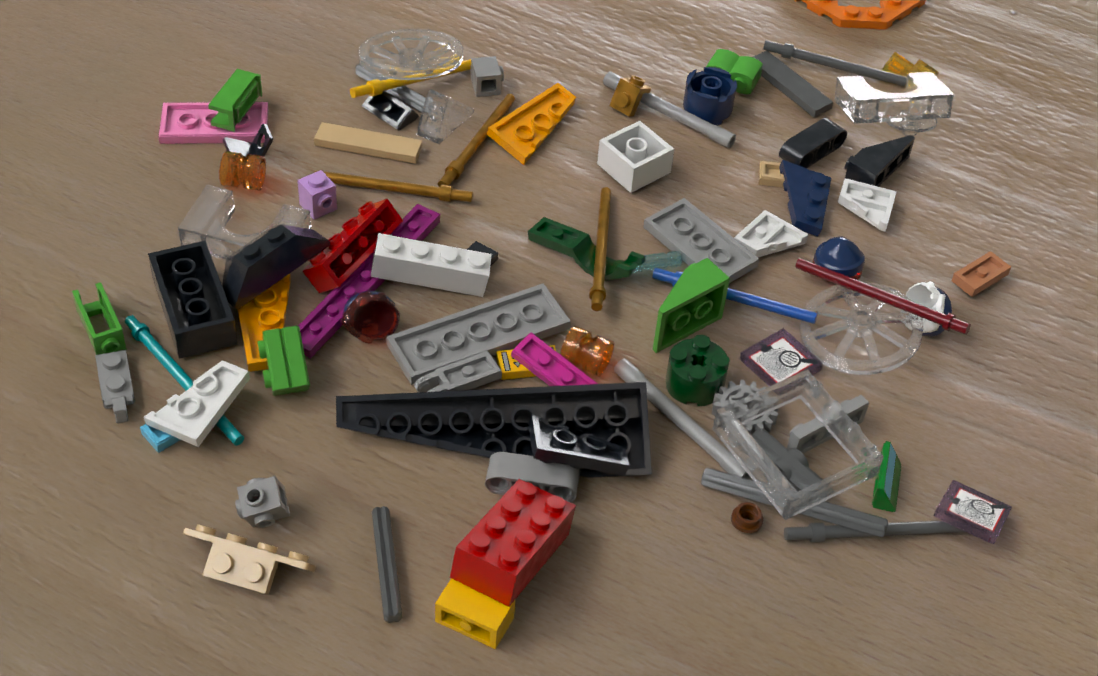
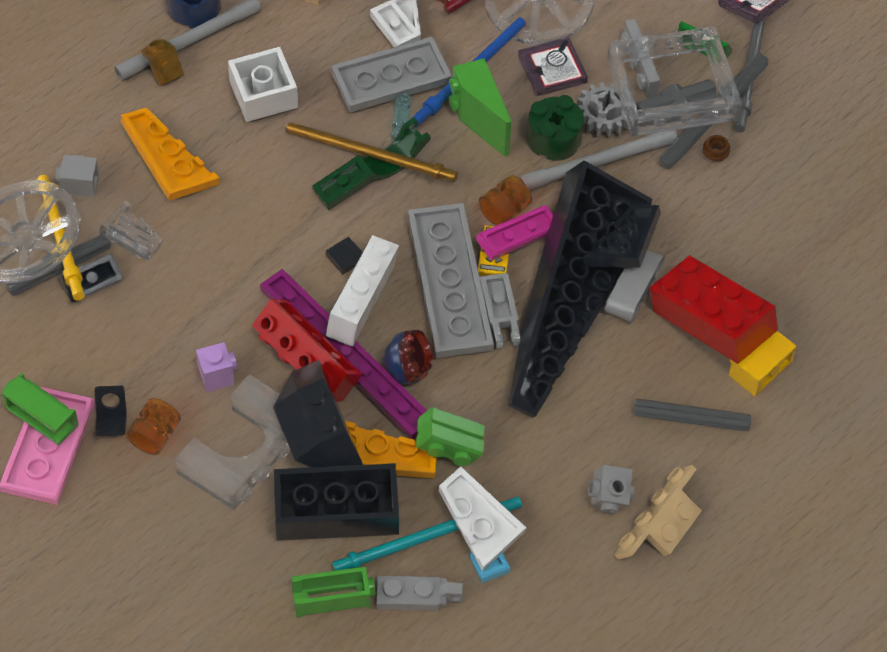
camera: 70 degrees left, 10 degrees up
(368, 142) = (138, 309): tan tile -> none
(444, 193) = (243, 261): pearl gold bar -> none
(456, 166) = (209, 241): pearl gold bar -> none

